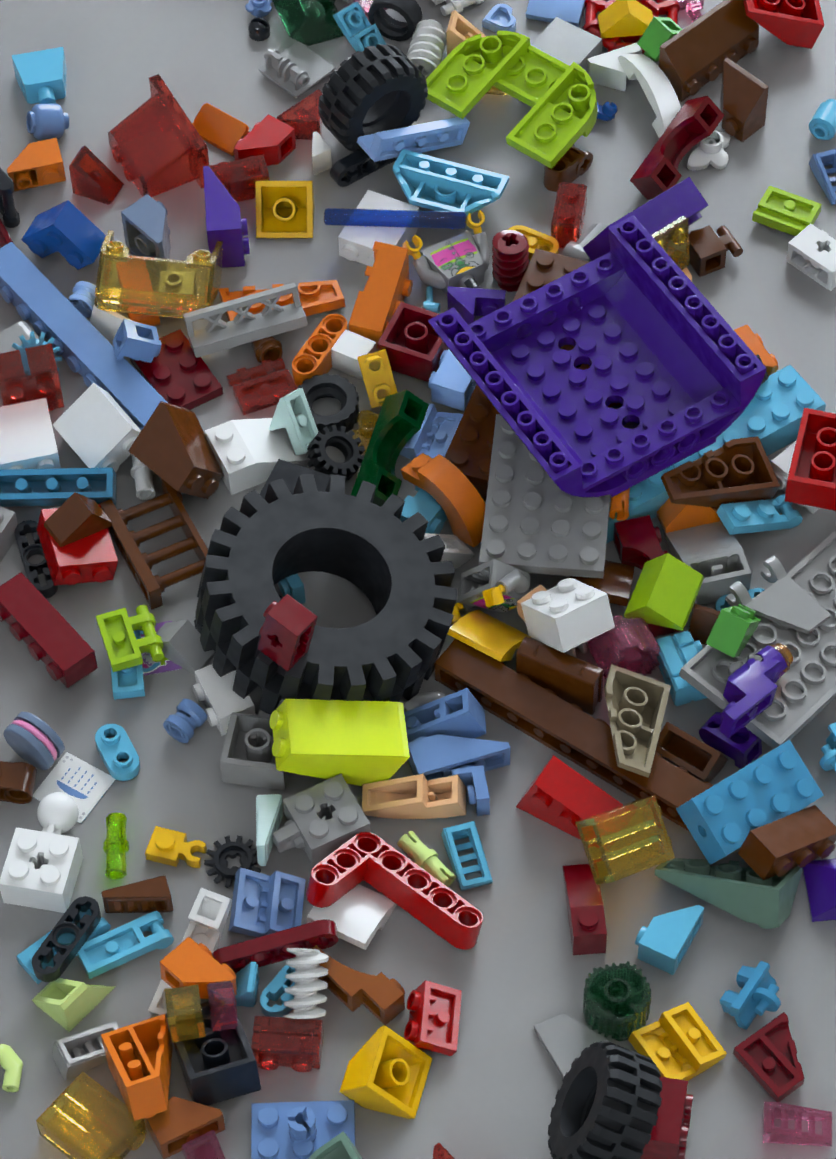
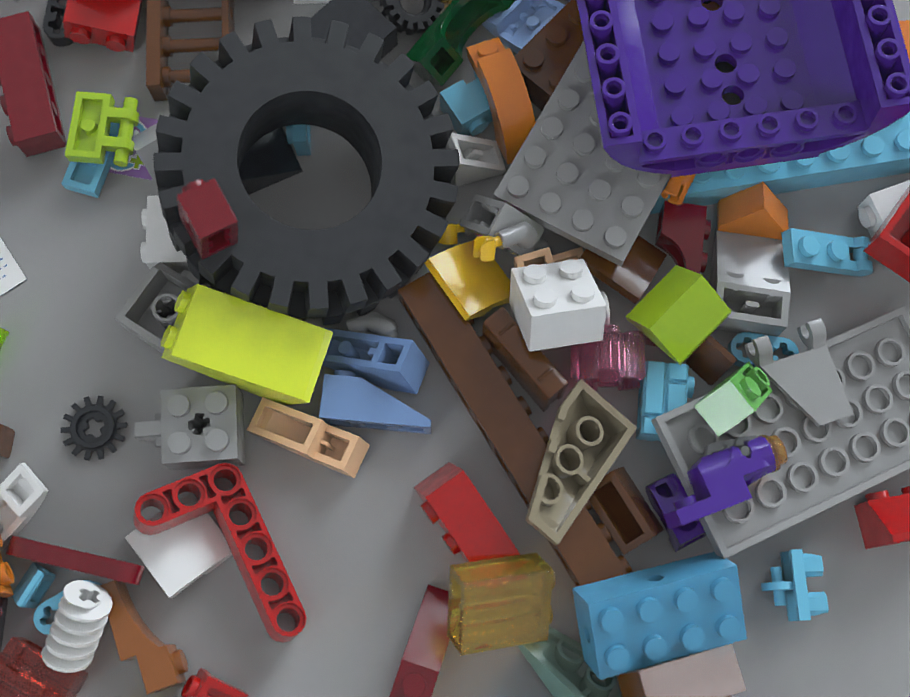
camera: 20 degrees right, 20 degrees up
(115, 750) = (39, 248): medium azure plate -> none
(170, 846) = (38, 384): yellow plate -> none
(185, 720) = (112, 251): medium blue wheel -> none
(266, 902) = (99, 497): medium blue slope -> none
(268, 819) = (138, 406): light aqua slope -> none
(425, 858) = (286, 517): yellowish green pin -> none
(462, 831) = (331, 562): medium azure slope -> none
(476, 787) = (376, 459): medium blue bracket -> none
(724, 476) = (808, 196): reddish brown wedge -> none

